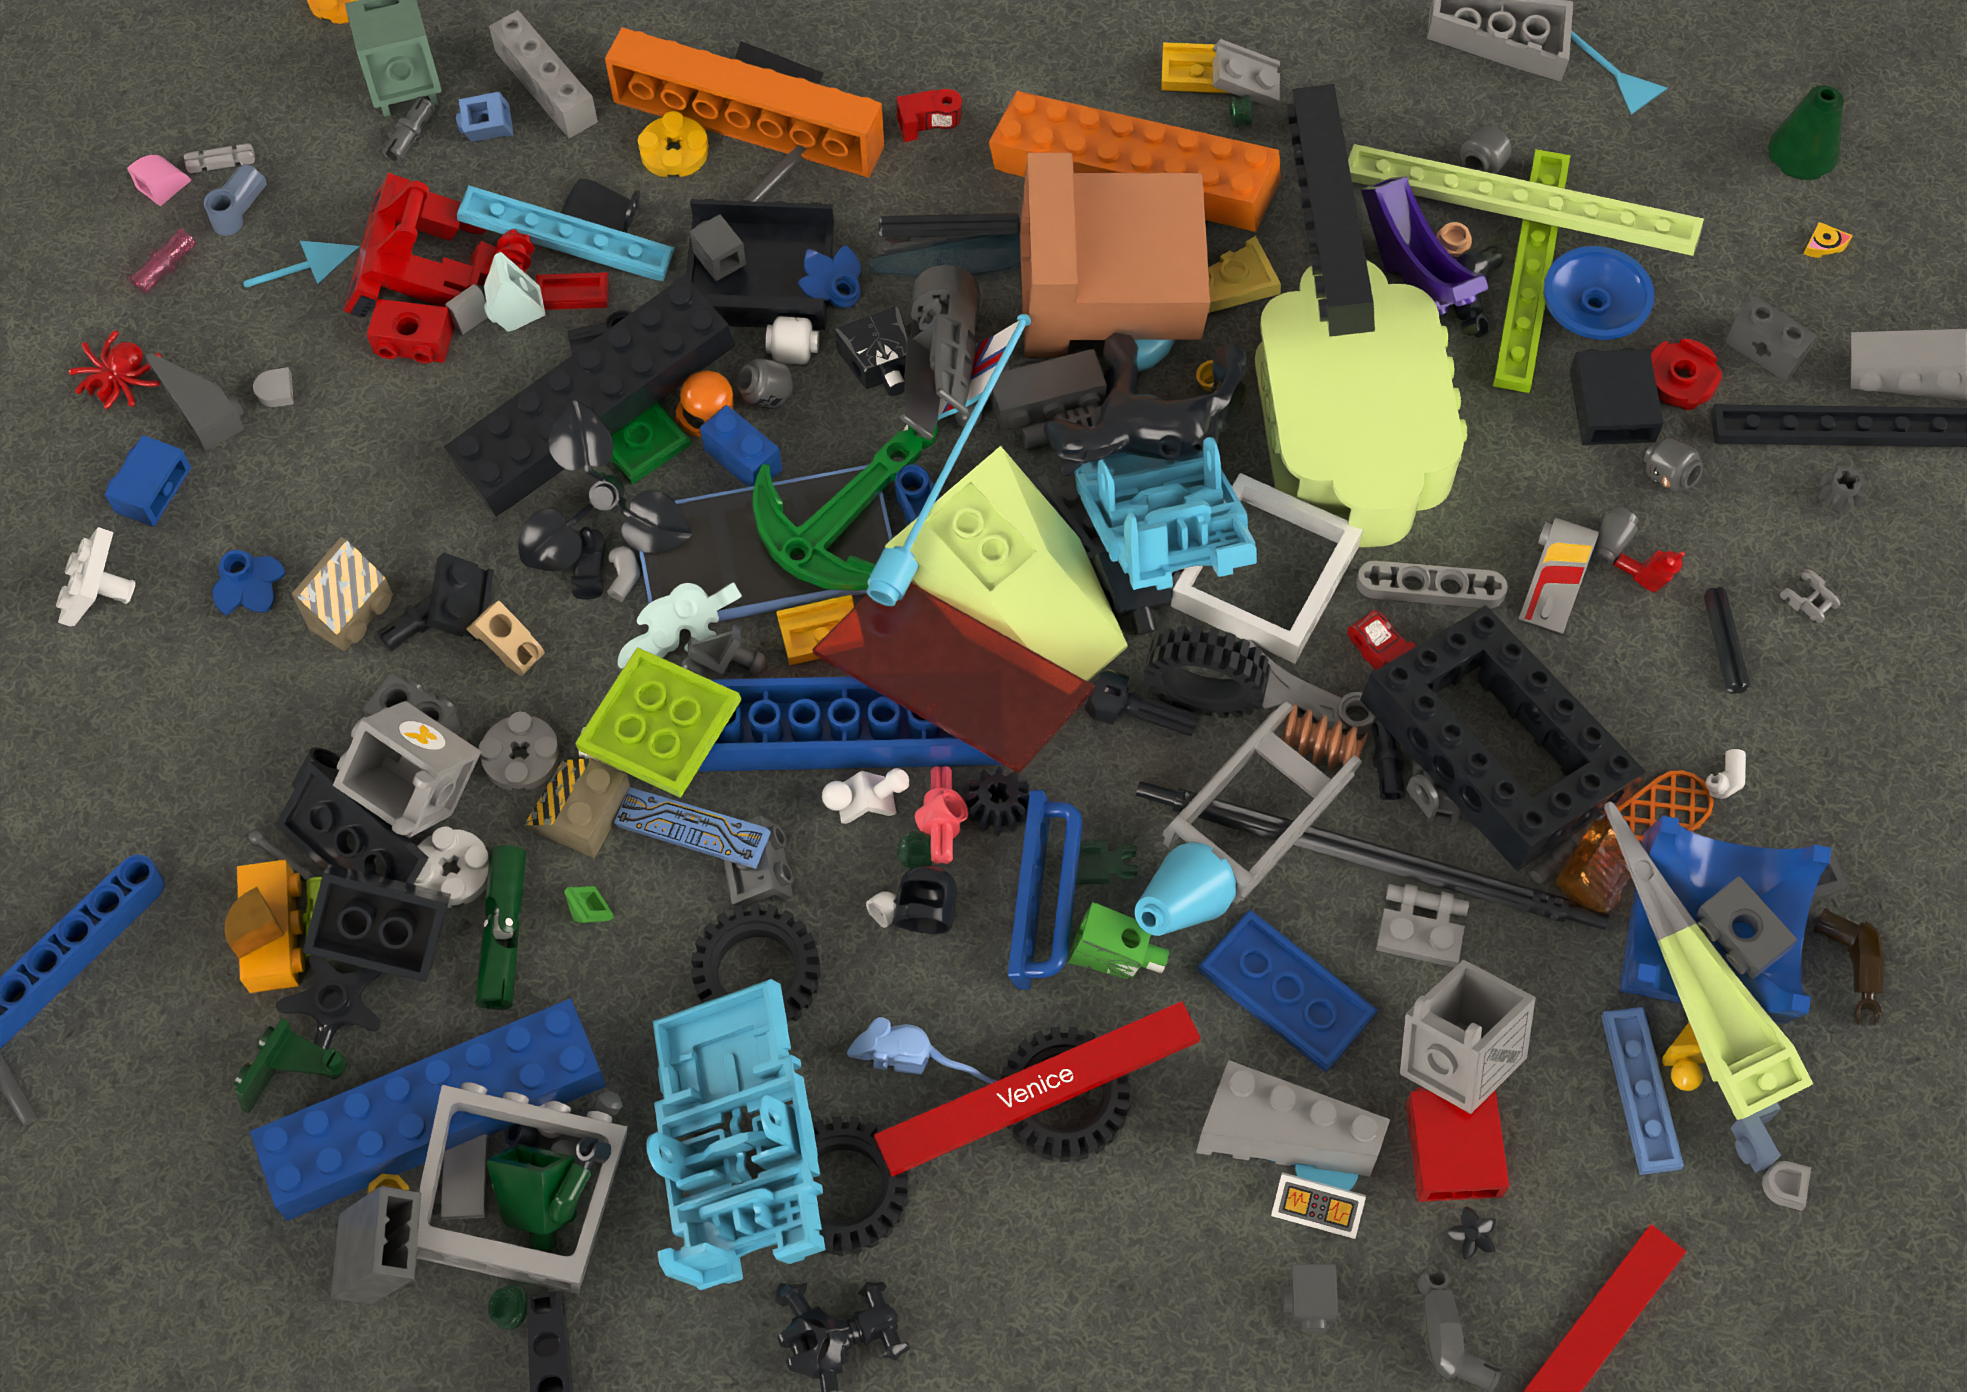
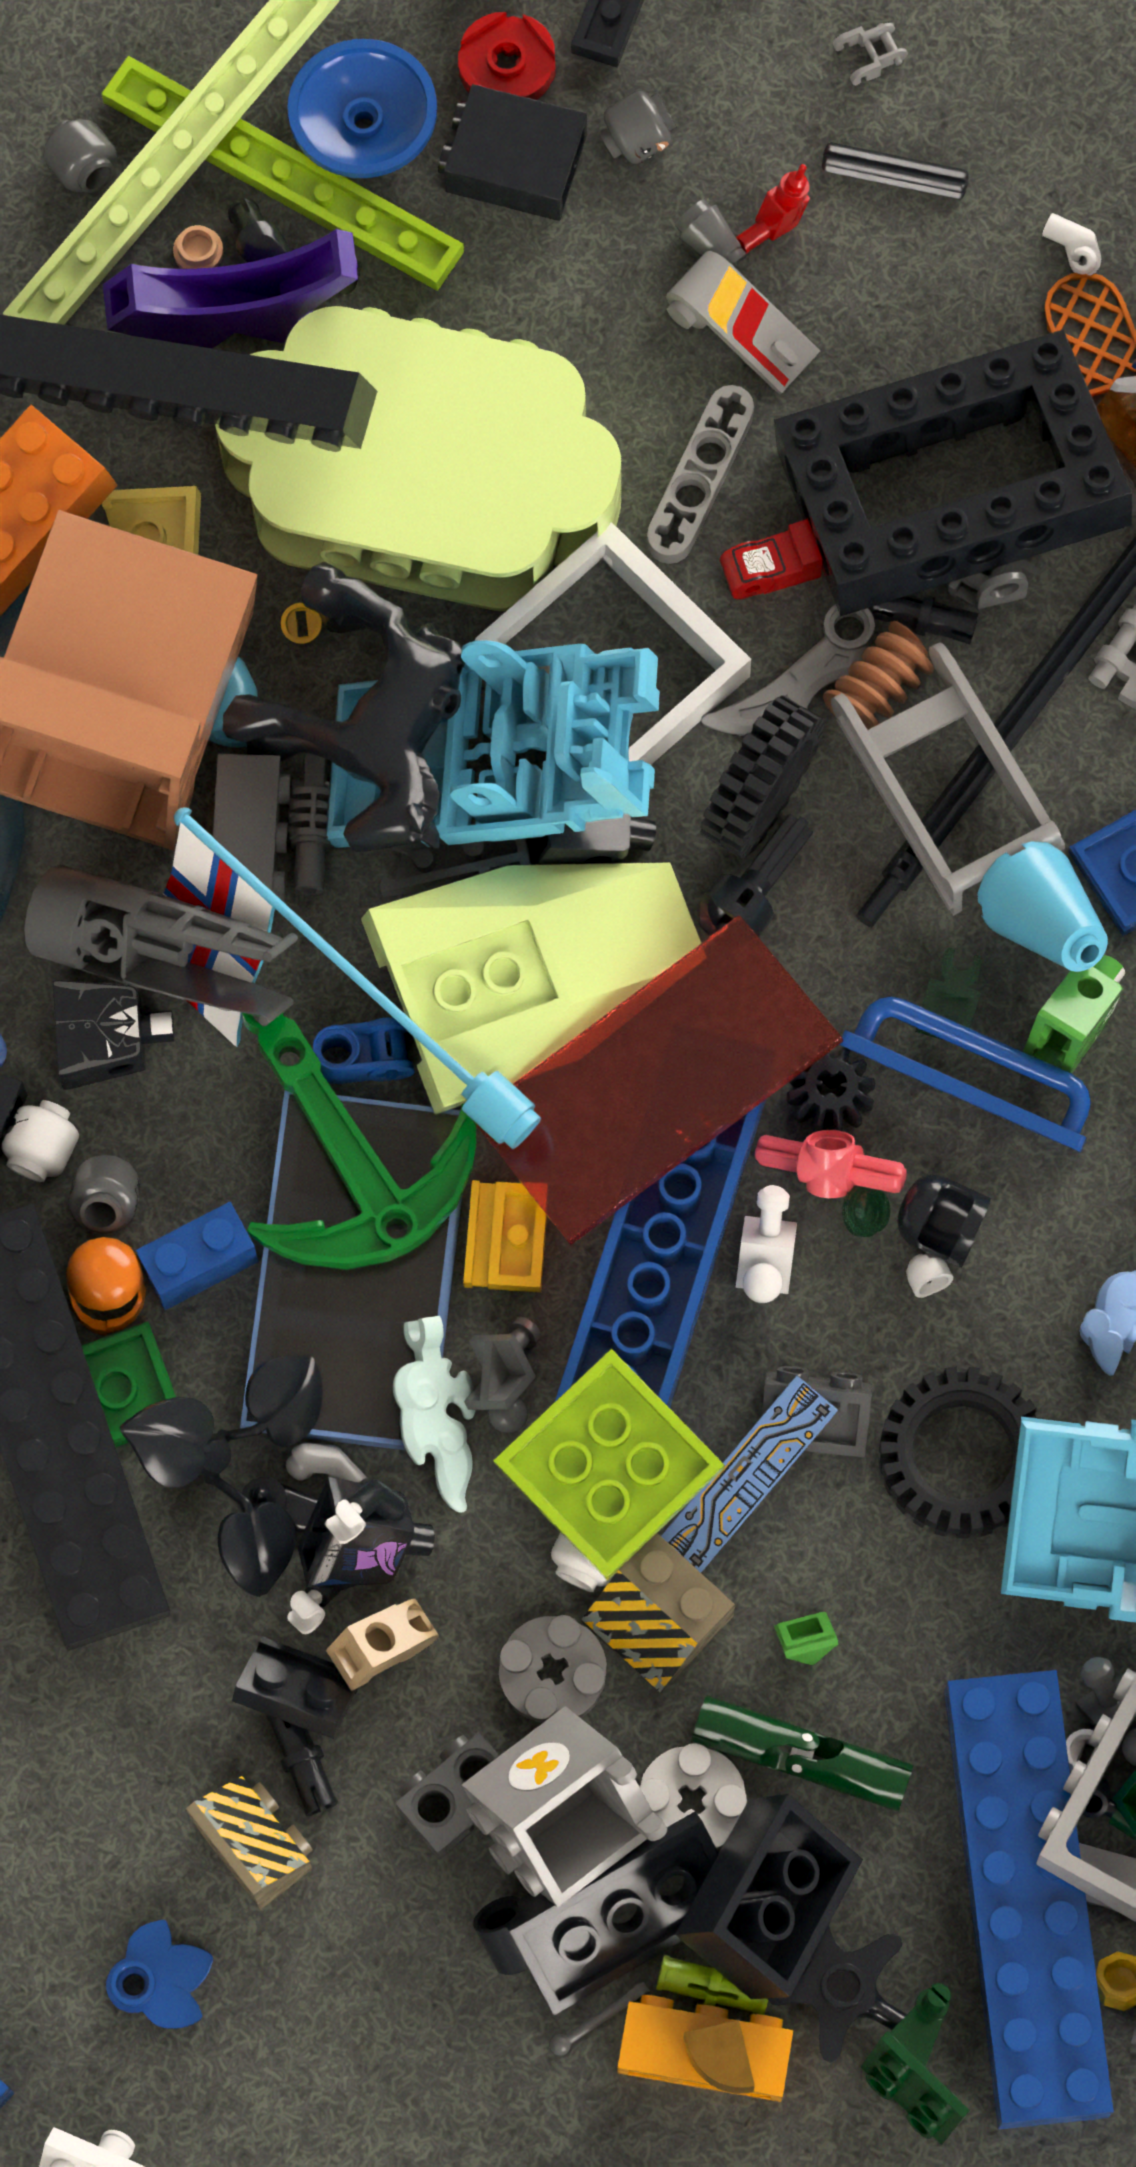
camera: 70 degrees left, 10 degrees up
(565, 591) = (353, 1540): none -> torso

